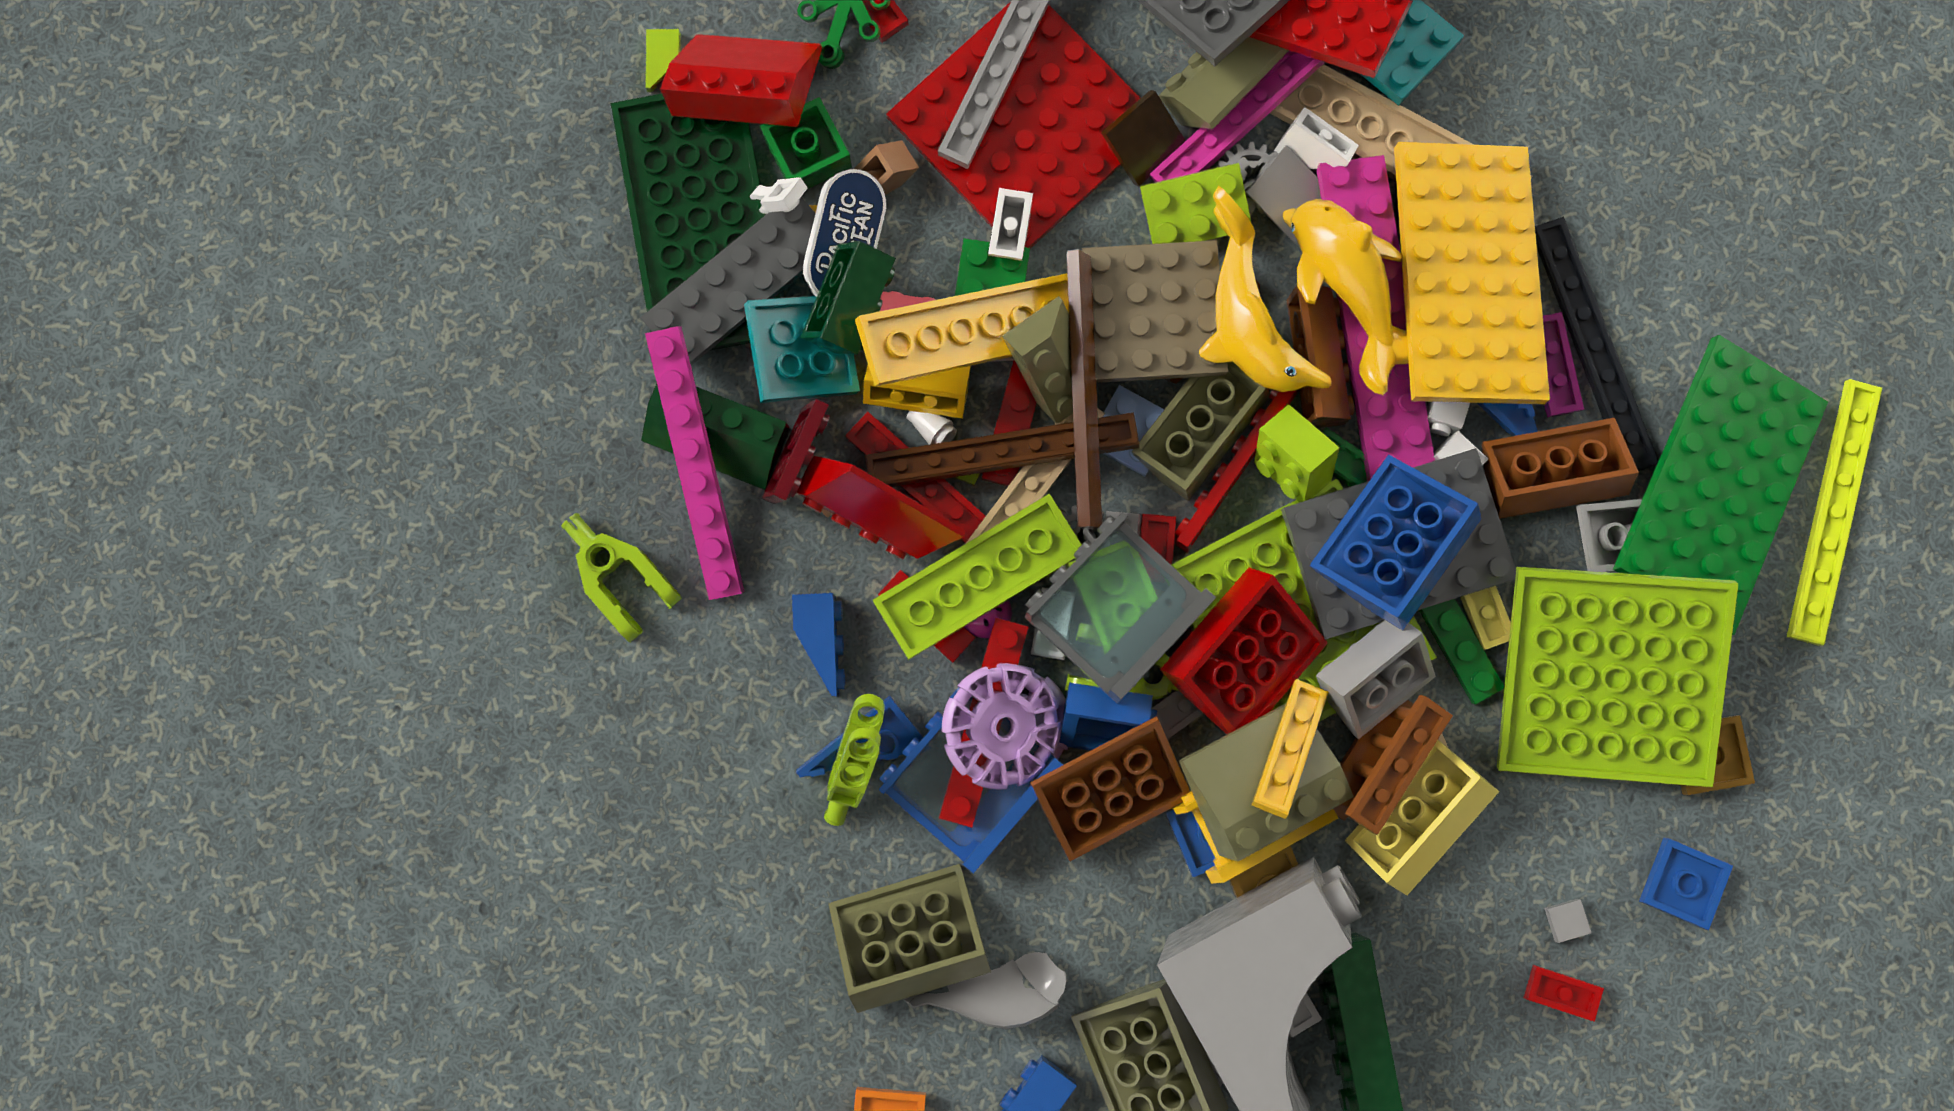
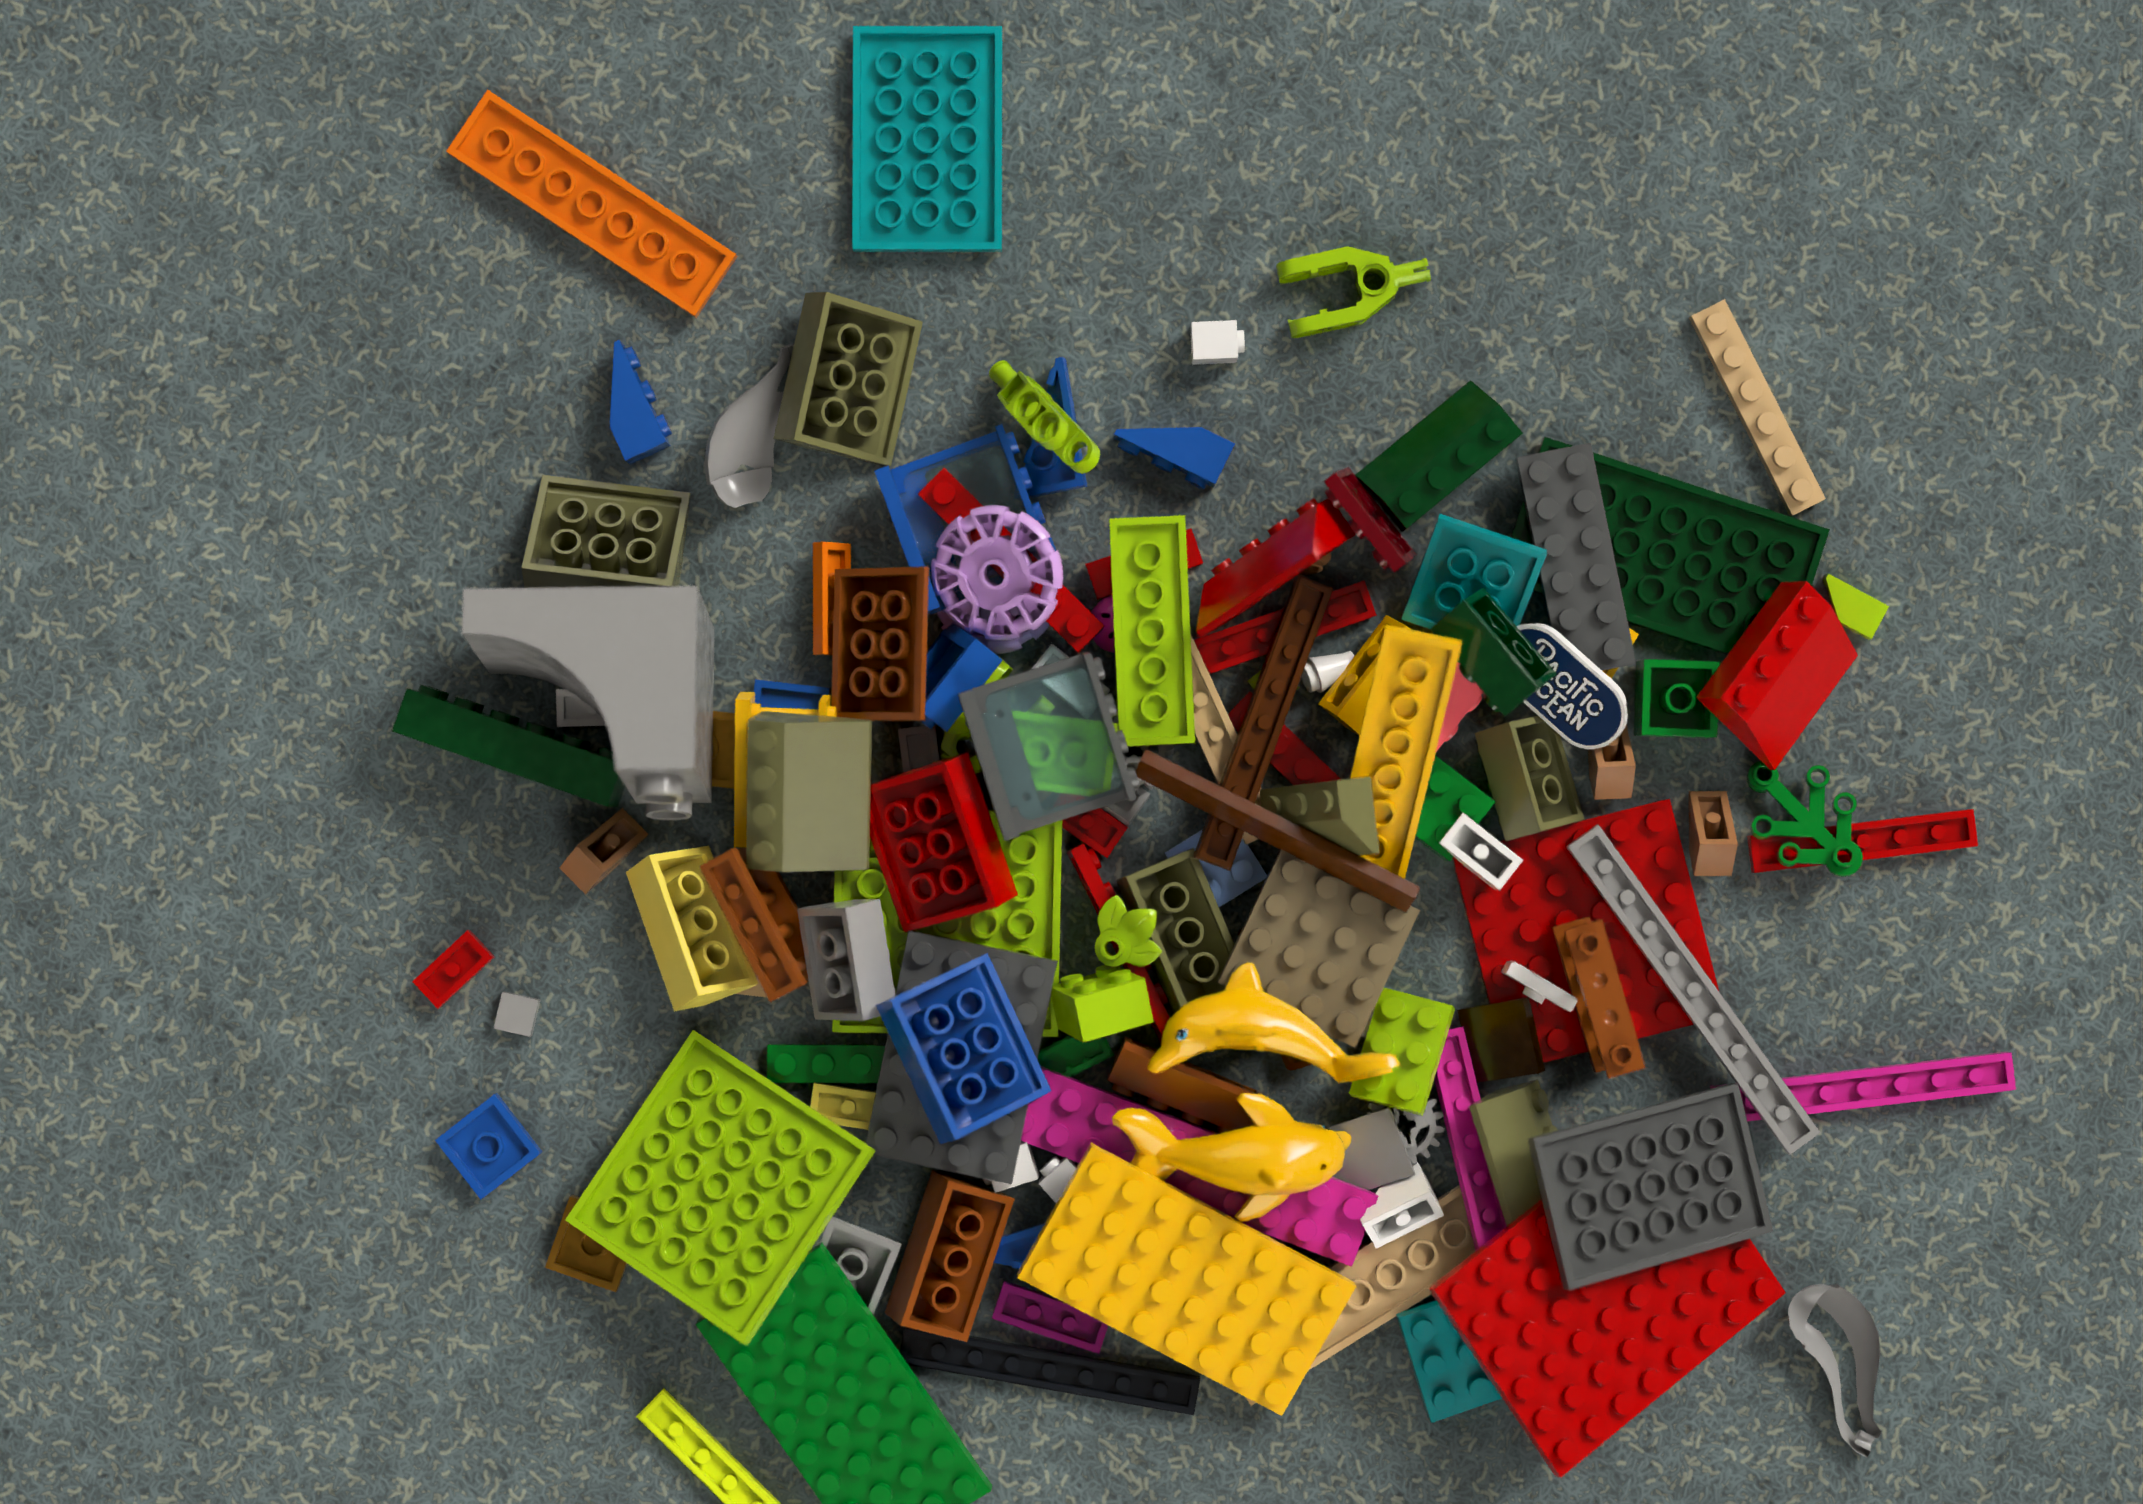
camera: 120 degrees right, 5 degrees up
(544, 209) = (1757, 408): none -> tan plate
(676, 983) = (927, 139): none -> teal plate
(694, 462) = (1415, 418): dark pink plate -> none
(718, 656) = (1216, 342): none -> white brick
(781, 196) = (1634, 643): white plate -> none
(895, 67) = (1711, 834): none -> medium nougat slope
(930, 226) = (1528, 777): none -> olive slope
(1066, 872) = (826, 558): none -> orange plate
(1072, 75) = (1600, 997): none -> dark orange fence
(1089, 129) = (1537, 987): none -> white plate
(1227, 464) = (1131, 933): none -> lime plate
(1290, 749) = (824, 832): yellow tile -> none
(1399, 923) = (603, 851): none -> medium nougat slope

